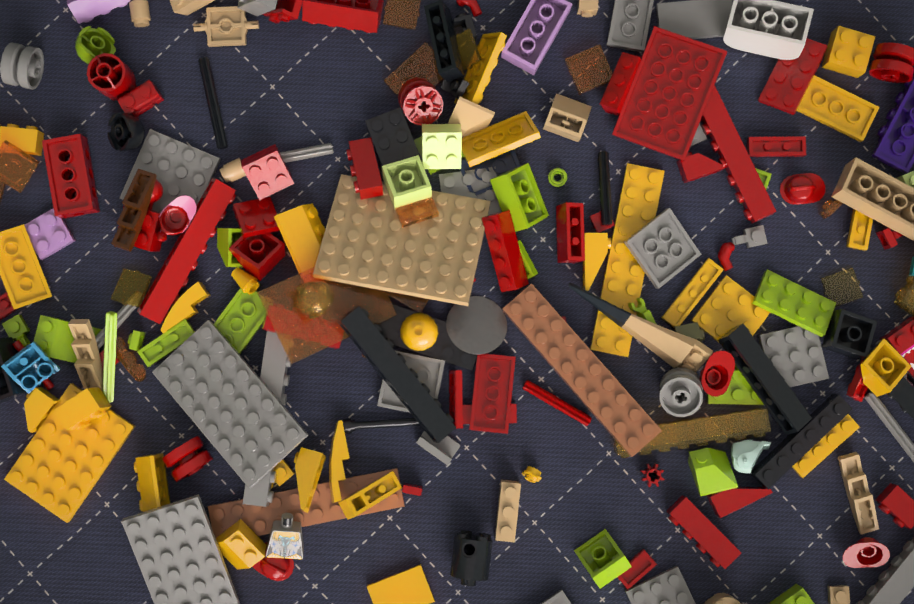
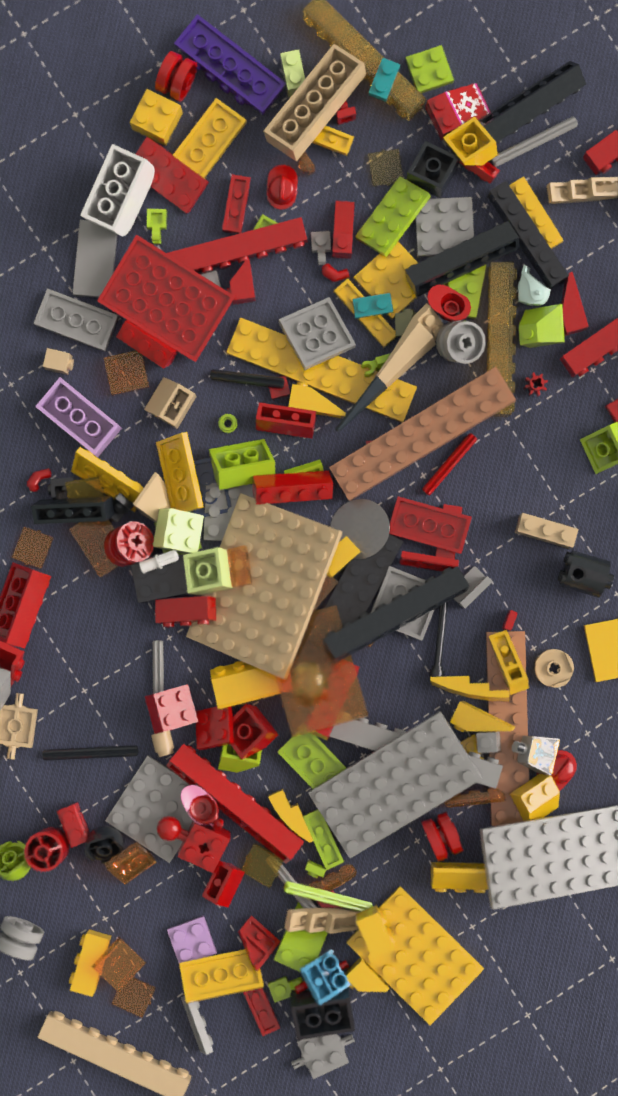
camera: 75 degrees left, 0 degrees up
(56, 296) = (257, 942): none -> red wing
(59, 171) = (133, 919): red brick -> none
(102, 253) = (223, 884): none -> red brick
(112, 159) = (130, 863): none -> clear orange plate
(135, 209) = (188, 846): reddish brown slope -> none
(231, 485) = (476, 798): none -> clear orange plate
(246, 281) = (277, 748): yellow cone -> none
(287, 488) = (488, 741): none -> light grey brick
(374, 530) = (563, 673): none -> tan plate
(408, 132) = (159, 561): none -> white axle
(419, 331) = (356, 586): yellow cylinder -> none
(447, 312) = (344, 554): none -> yellow hinge
(532, 474) = (515, 501): yellow plate -> none
(700, 298) = (372, 305): none -> teal plate
(743, 71) = (156, 222): none -> lime plate
(771, 256) = (343, 229): none -> red slope

